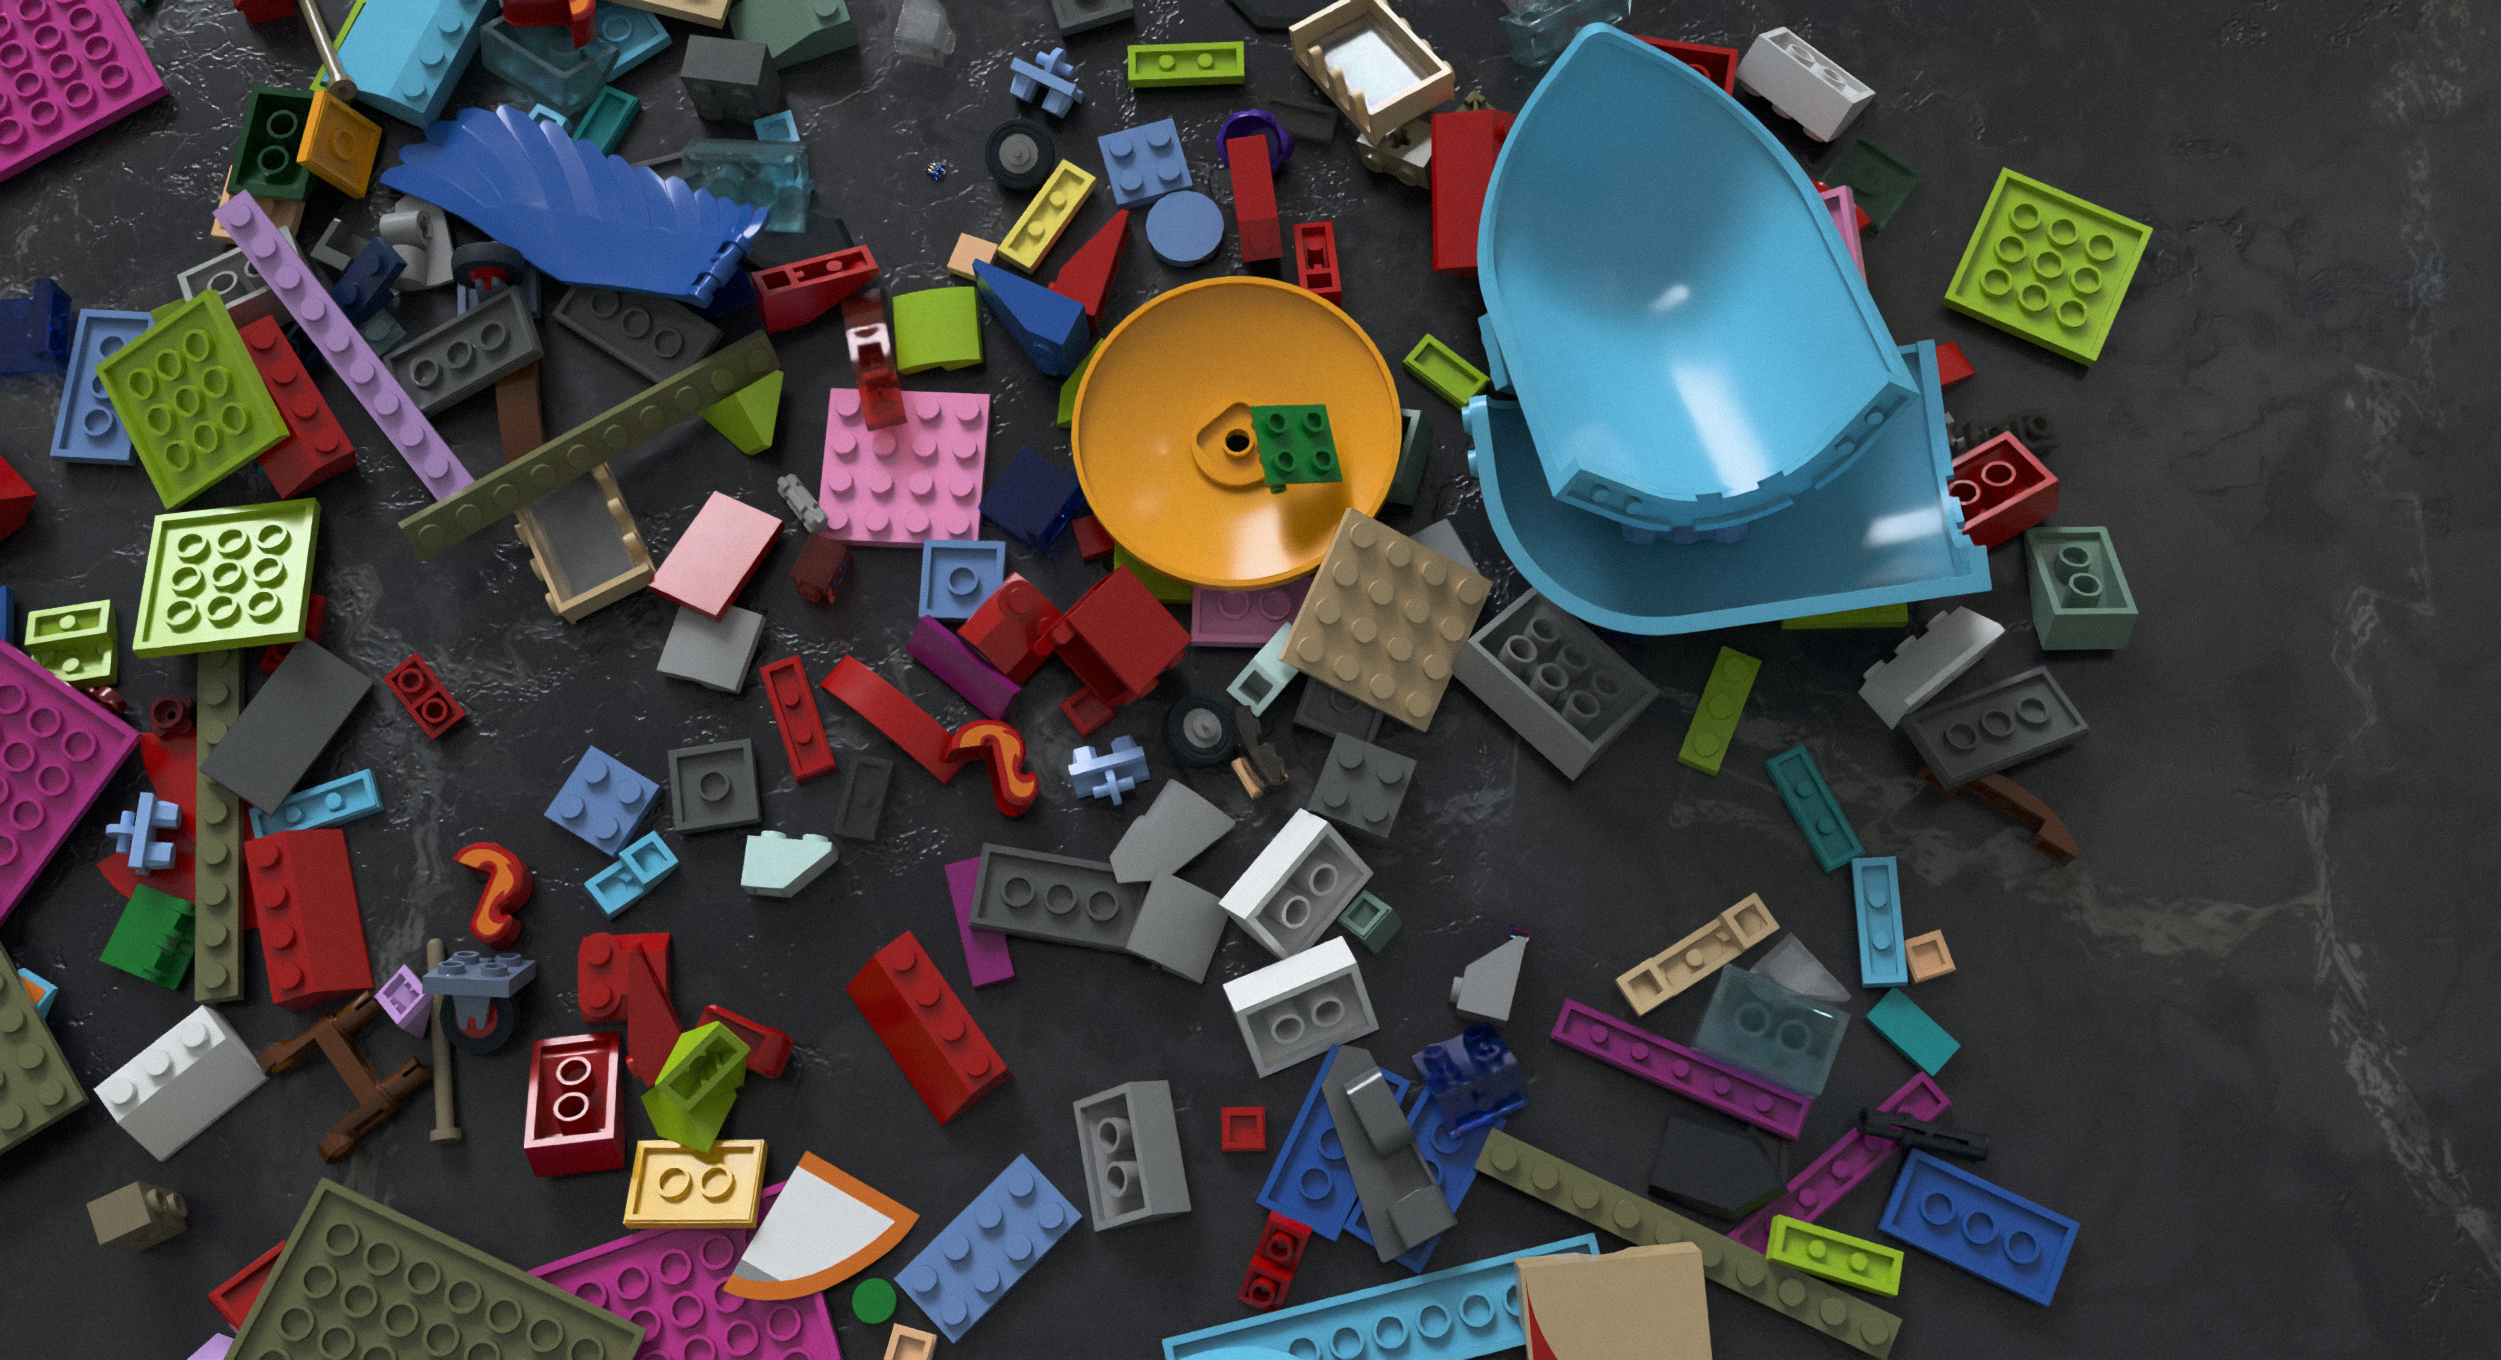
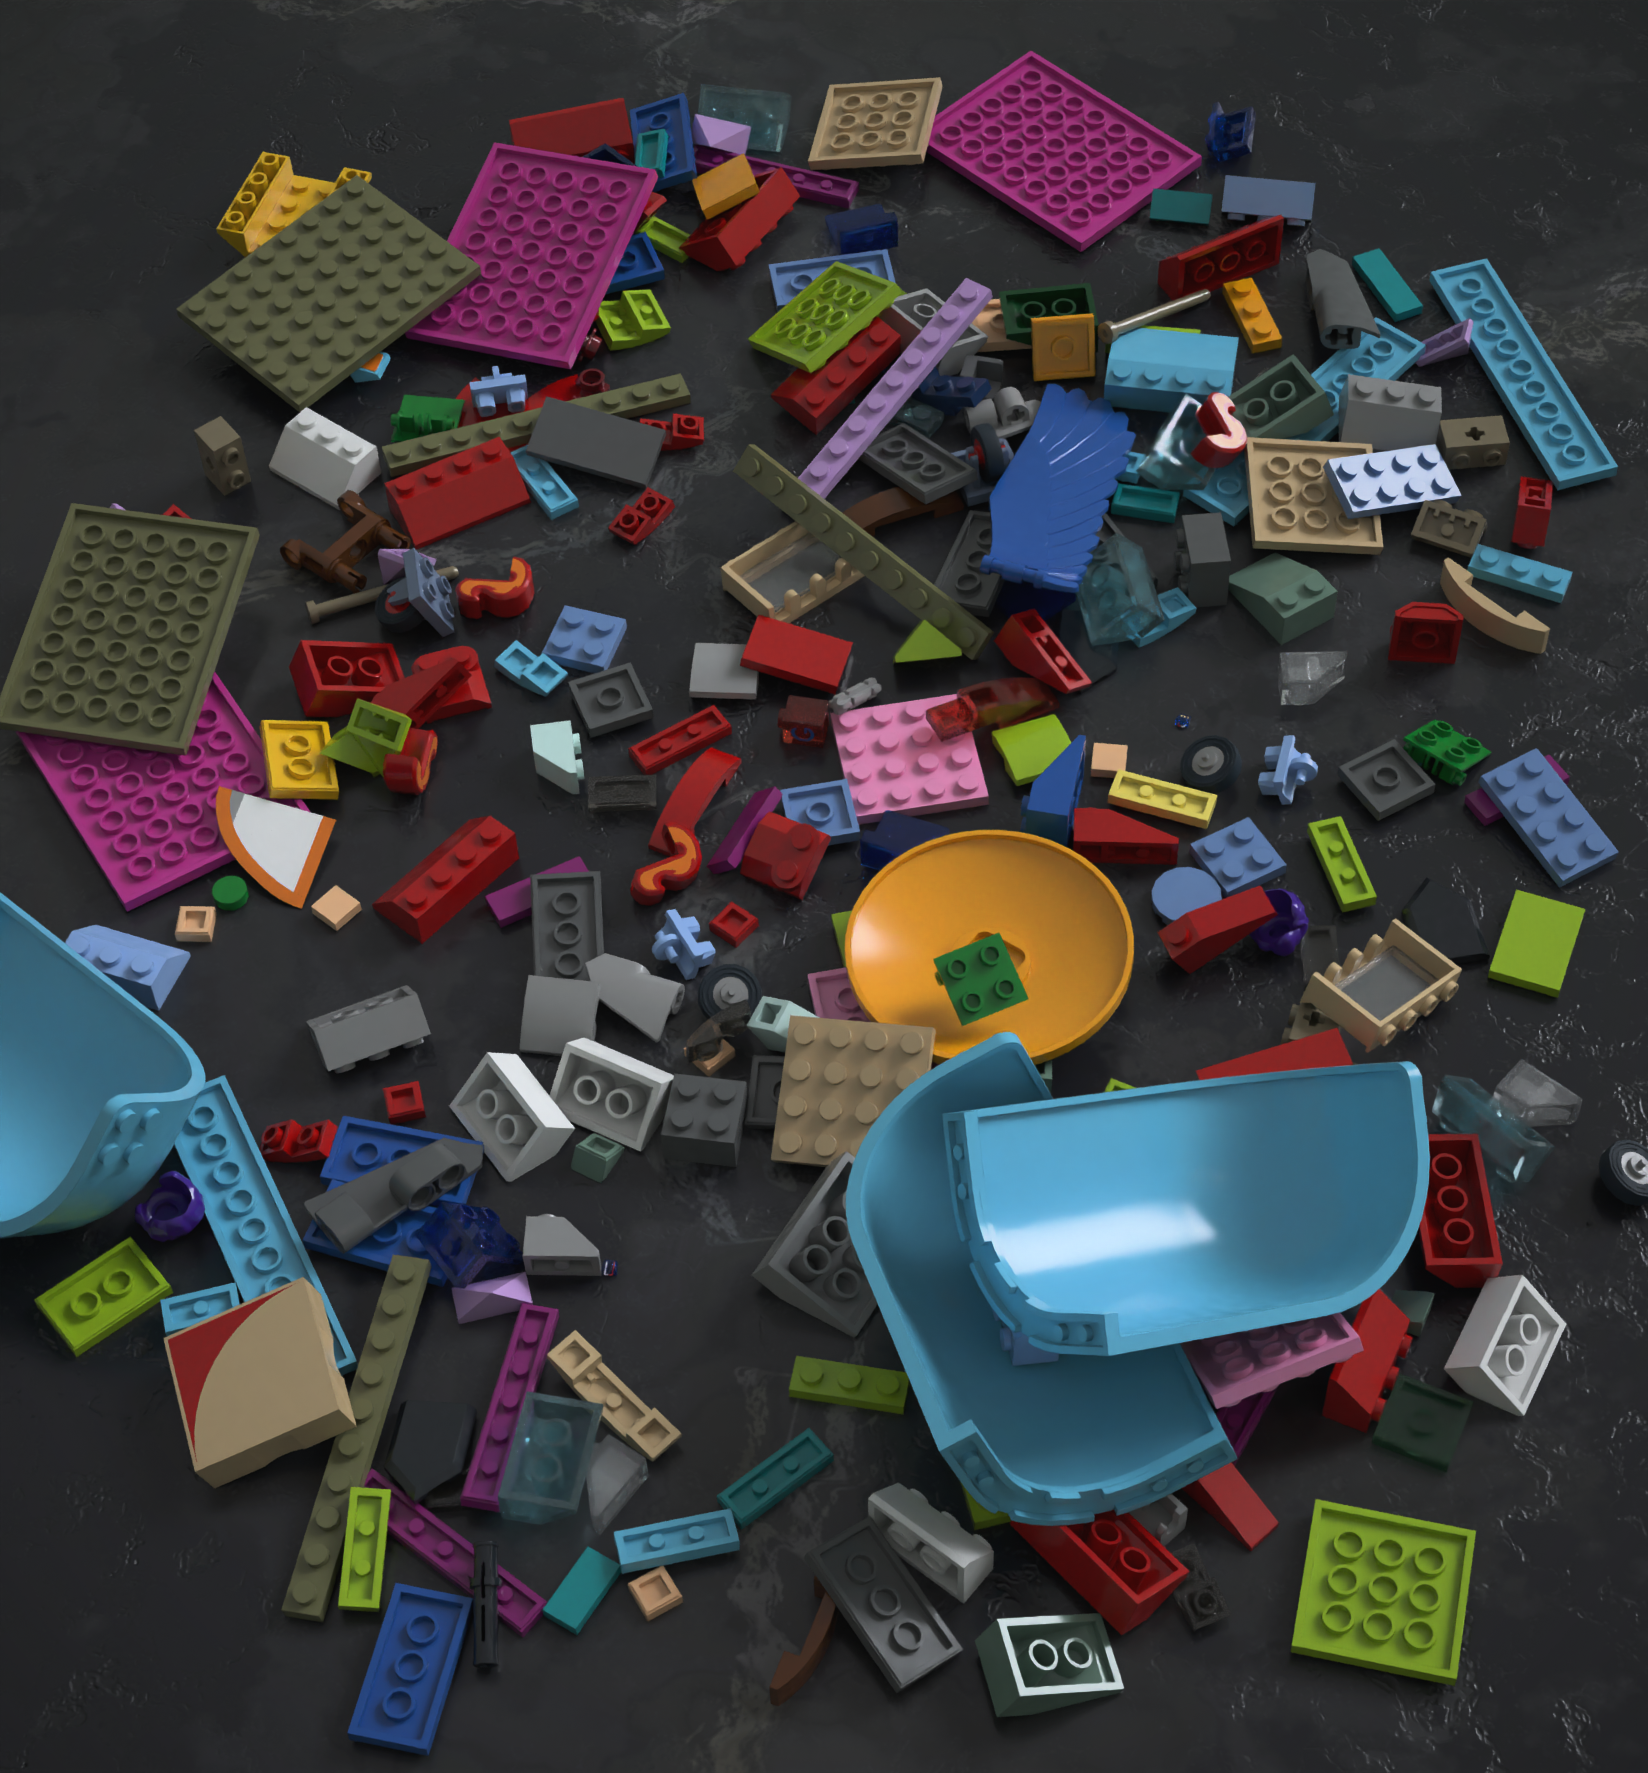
camera: 75 degrees right, 20 degrees down
(228, 578) = (699, 379): lime plate -> none
(935, 1171) = (336, 908): none -> light nougat tile
(988, 1248) = (282, 955): medium blue plate -> none
(1117, 639) = (784, 906): red container -> none
(1317, 260) = (1170, 996): red slope -> none
(1536, 1062) = (491, 1297): none -> lavender slope

